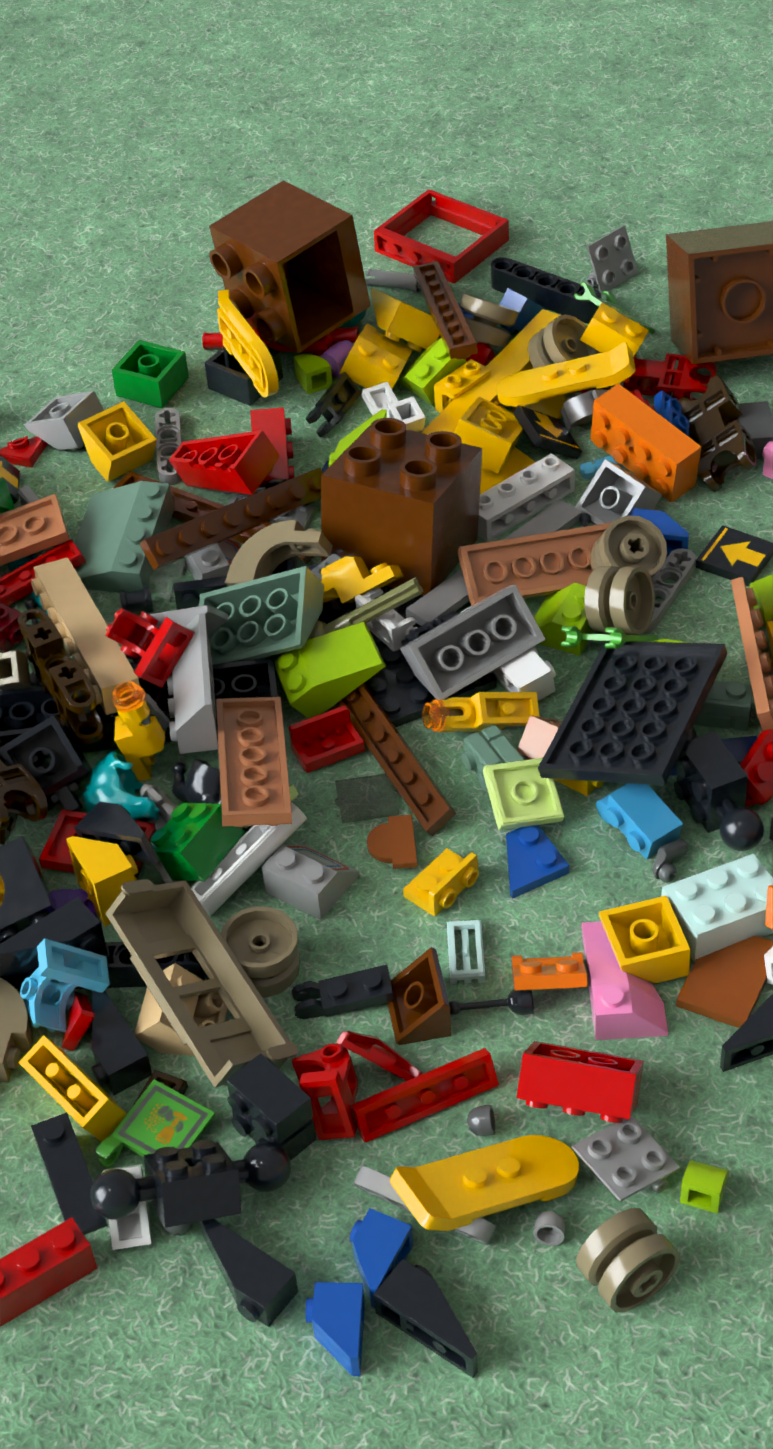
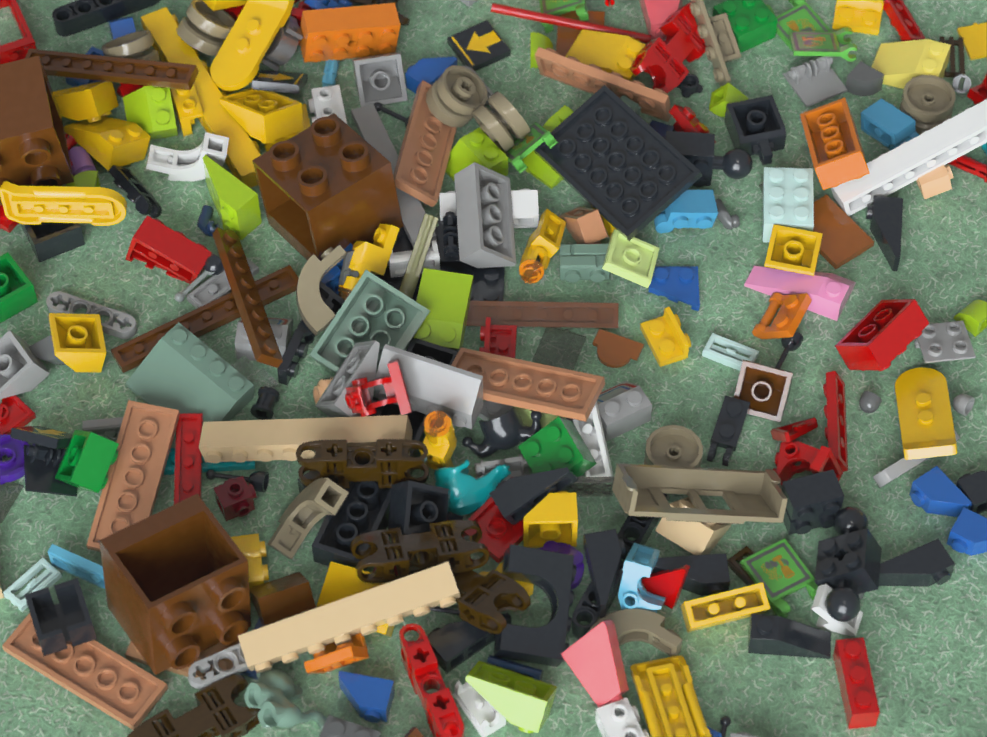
camera: 65 degrees left, 10 degrees up
(226, 462) = (174, 280): red wedge -> none

